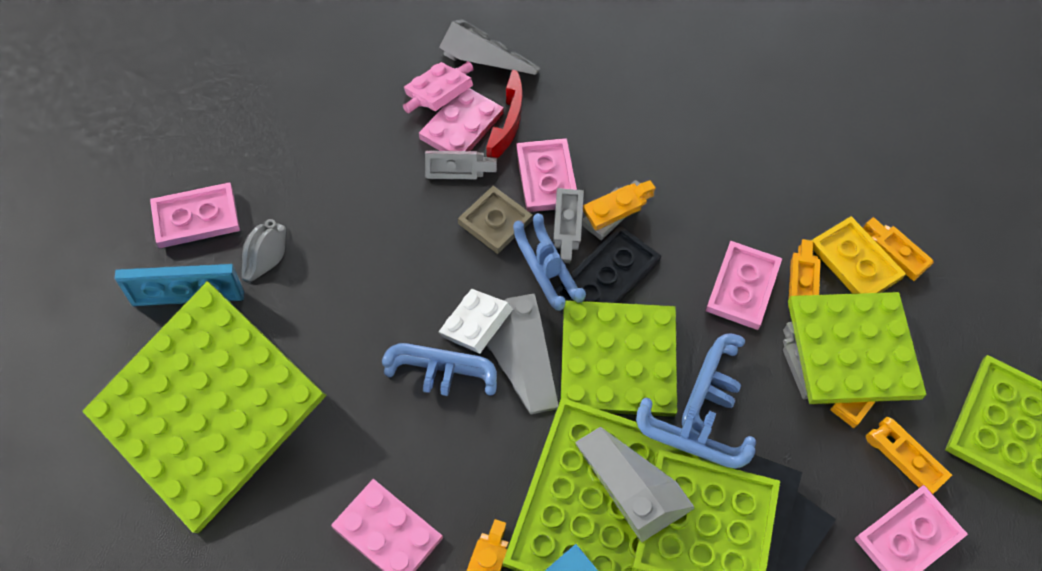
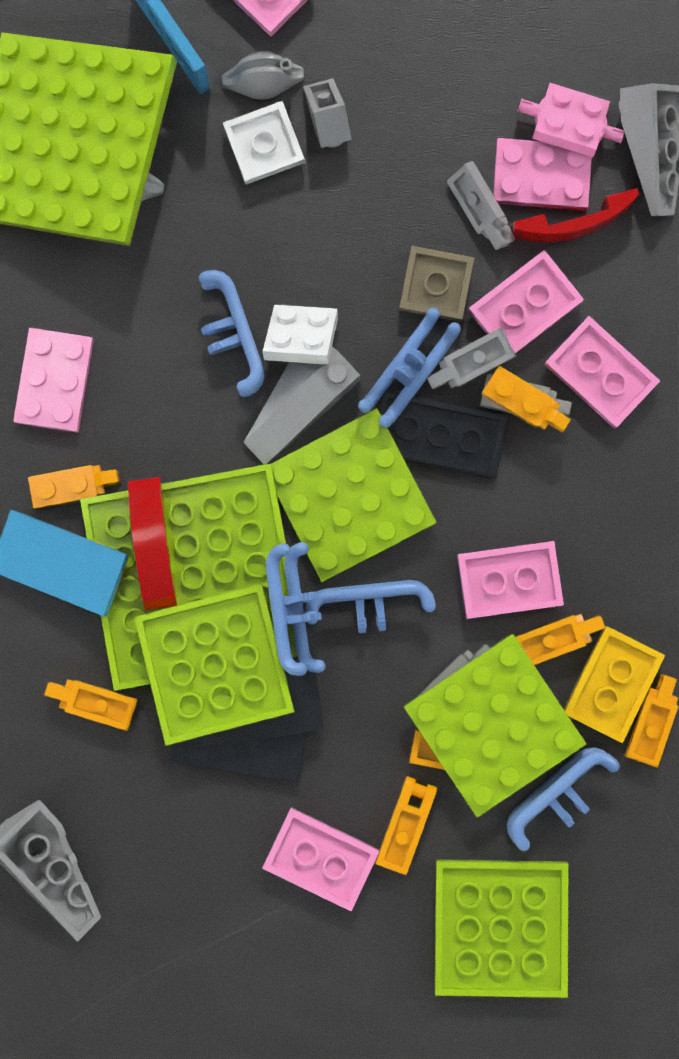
camera: 65 degrees right, 25 degrees up
(313, 274) = (264, 142): none -> white plate
(324, 220) = (327, 113): none -> light grey slope
(576, 519) = (151, 543): none -> red slope
(623, 155) = (602, 372): none -> bright pink plate
(638, 488) = (209, 578): light grey wedge -> none
(925, 338) = (552, 789): none -> medium blue piece

